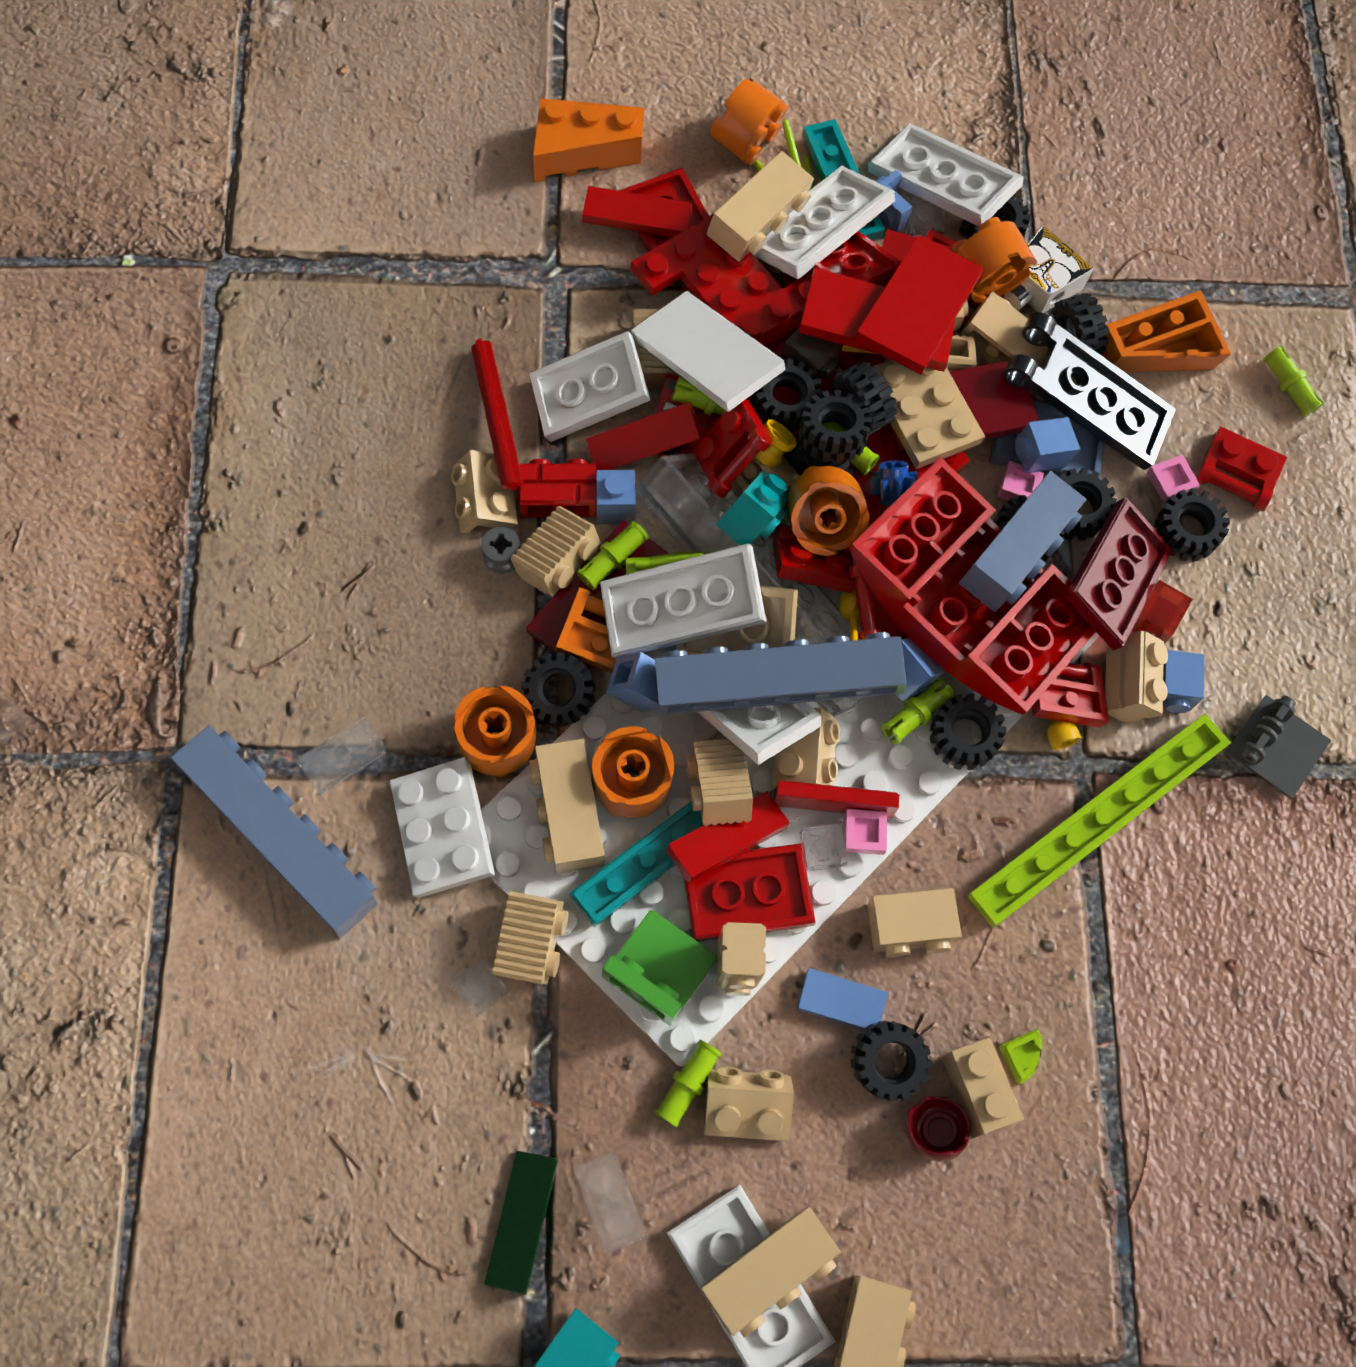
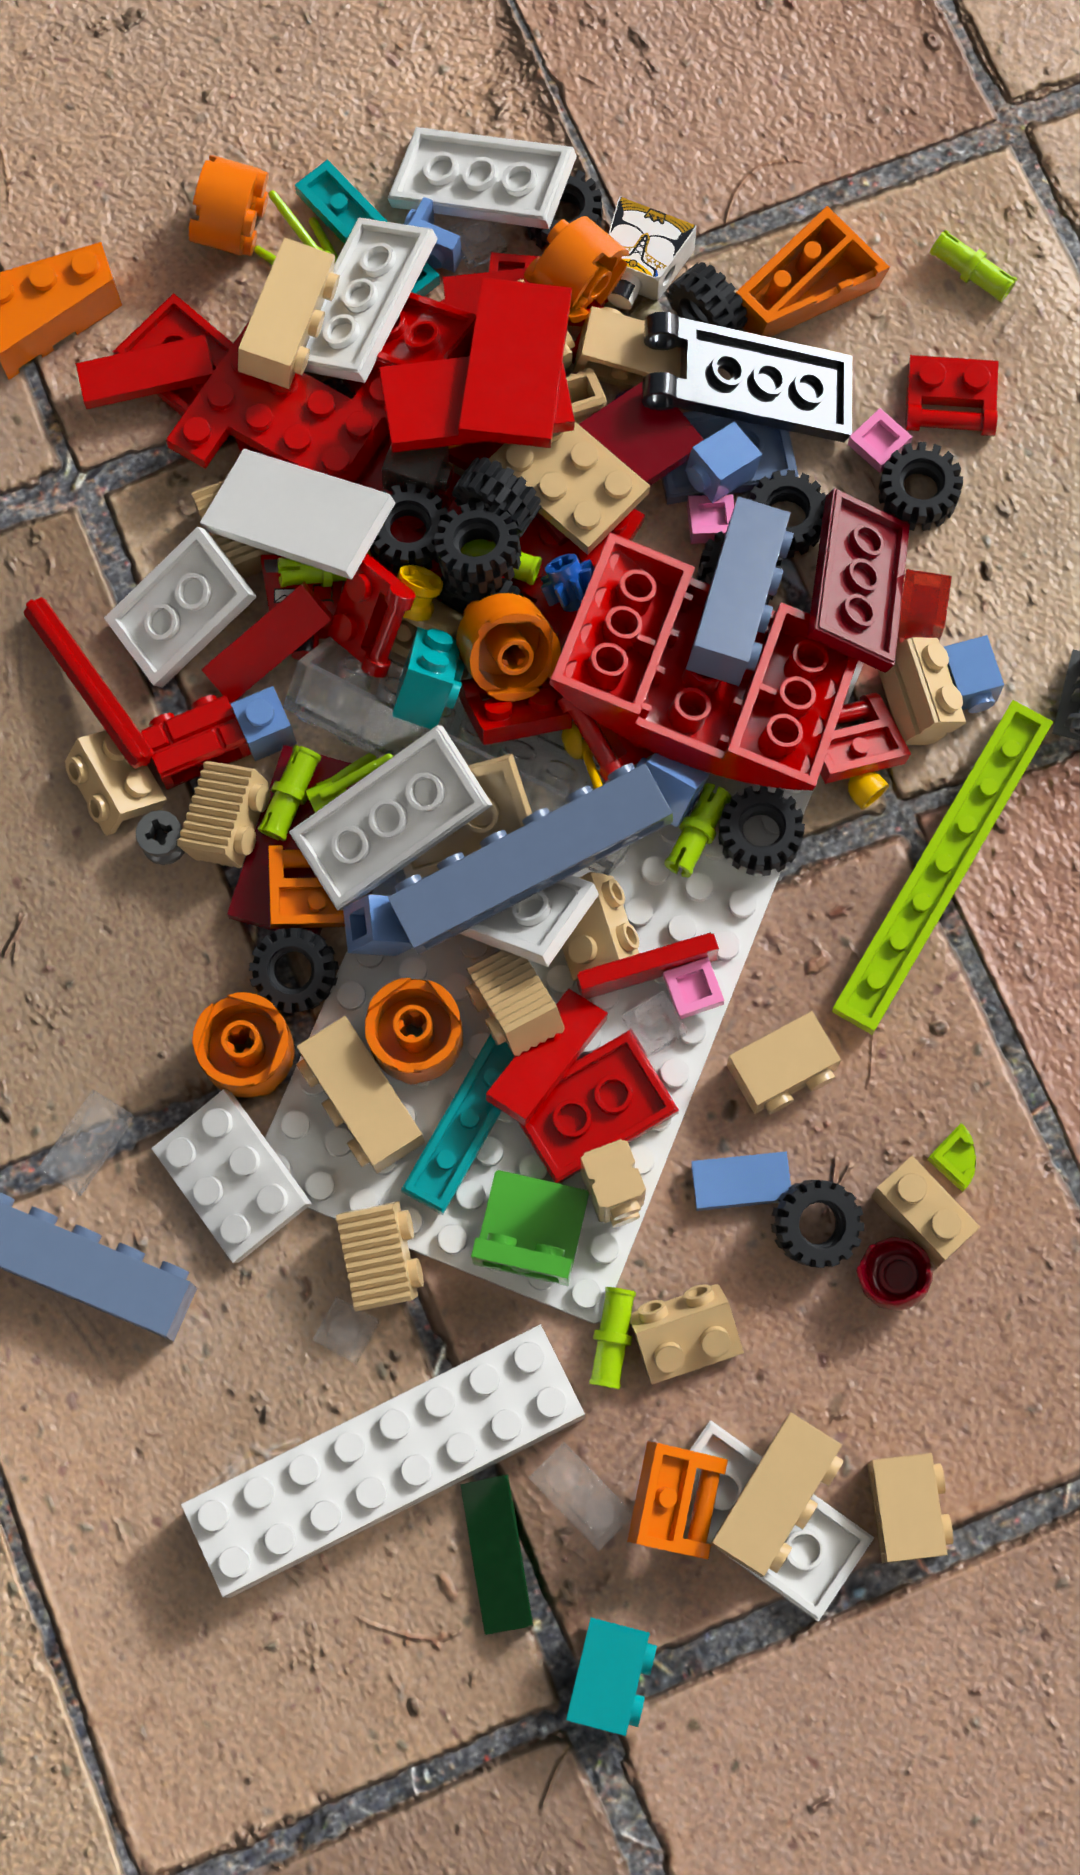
camera: 10 degrees left, 5 degrees up
(461, 1105) = (382, 1462): none -> white brick
(677, 1235) = (665, 1499): none -> orange plate

